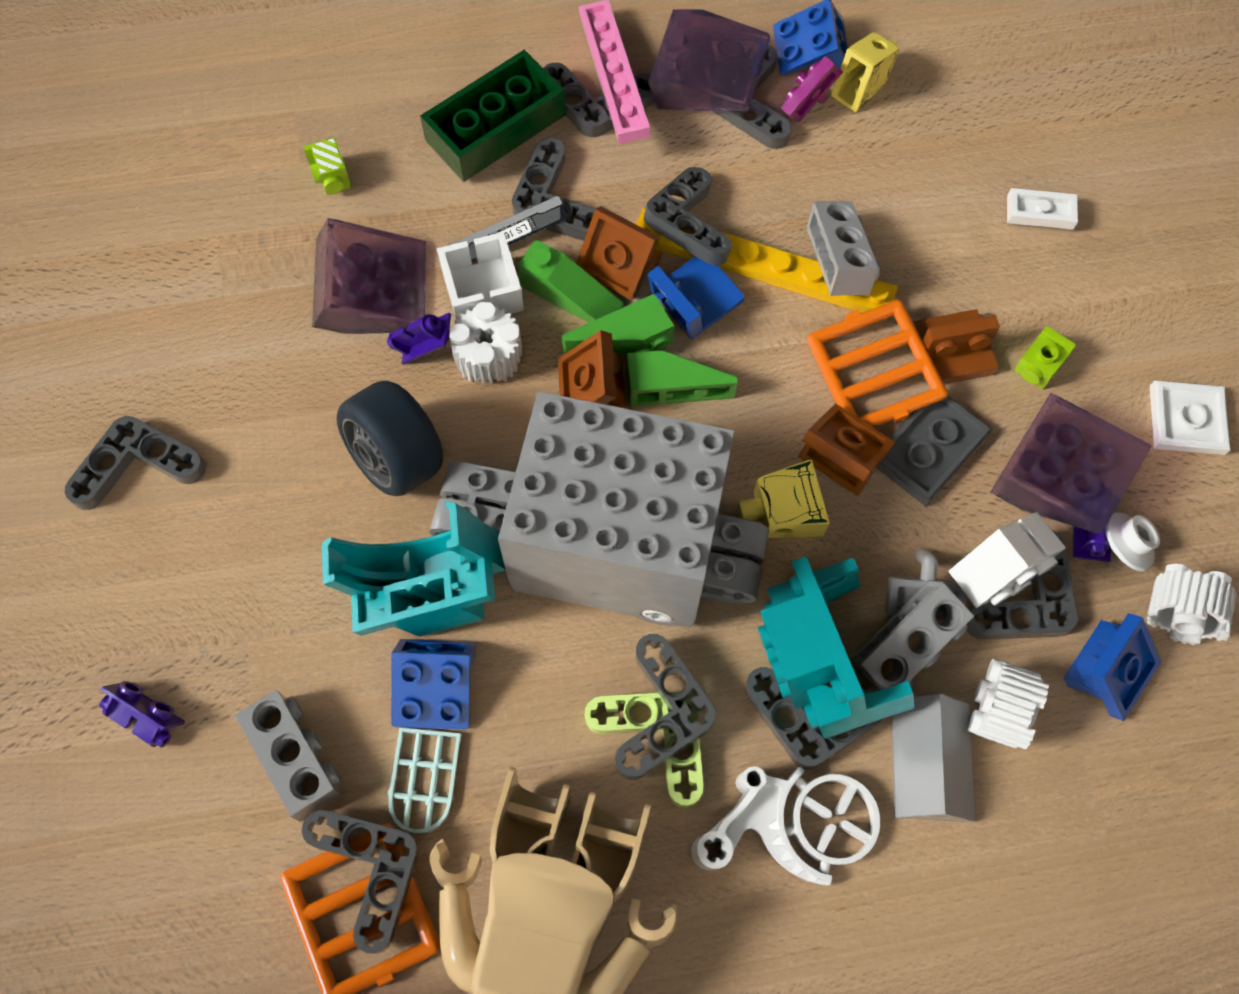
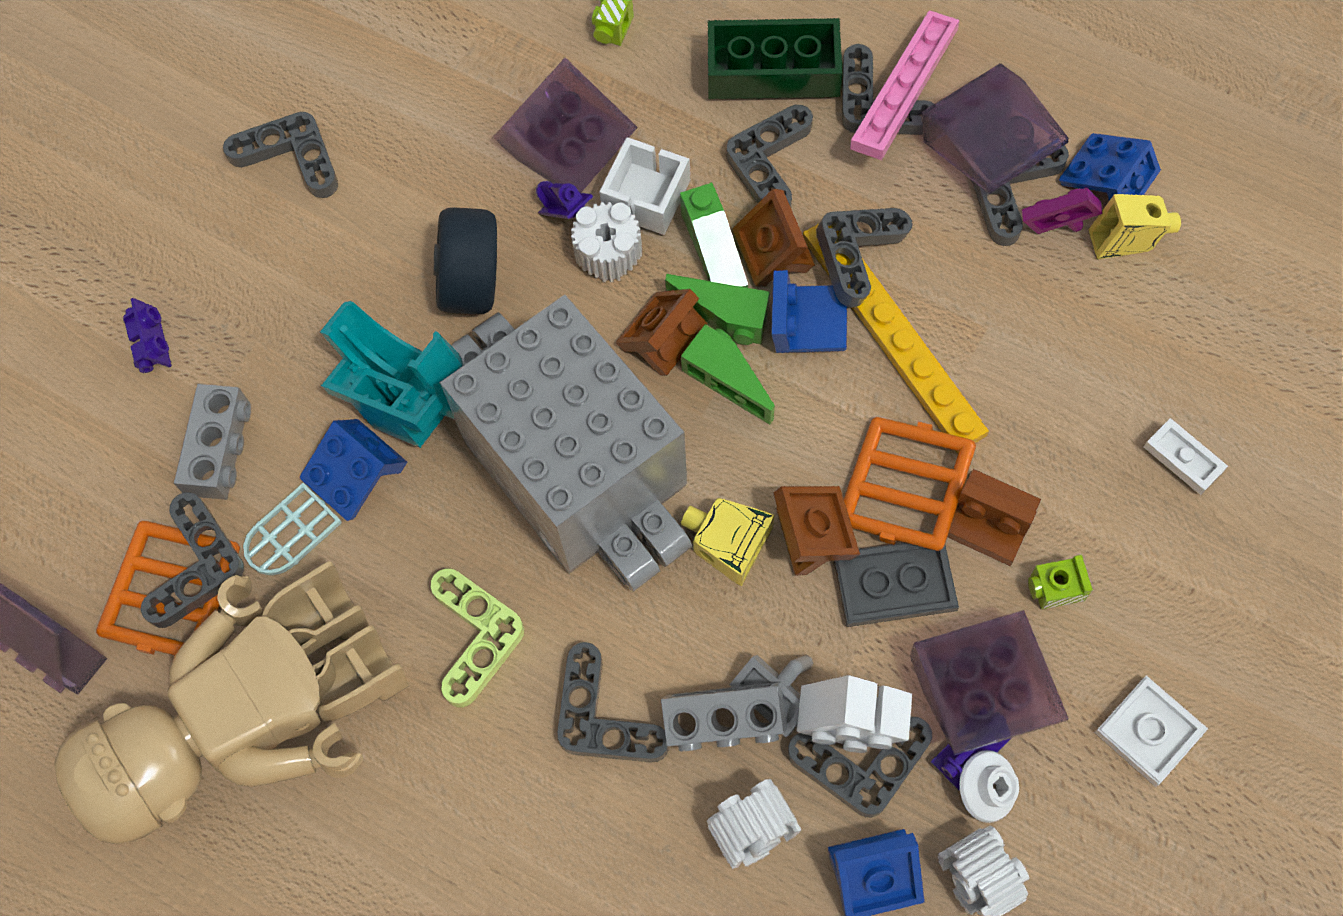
camera: 45 degrees right, 0 degrees up
(522, 224) = (718, 163): sticker -> none
(675, 720) = (492, 630): dark grey beam -> none
(763, 811) = (498, 749): white piece -> none
(809, 652) = (622, 651): teal piece -> none
(842, 248) = (963, 364): light grey brick -> none
(933, 761) = (663, 822): light grey slope -> none

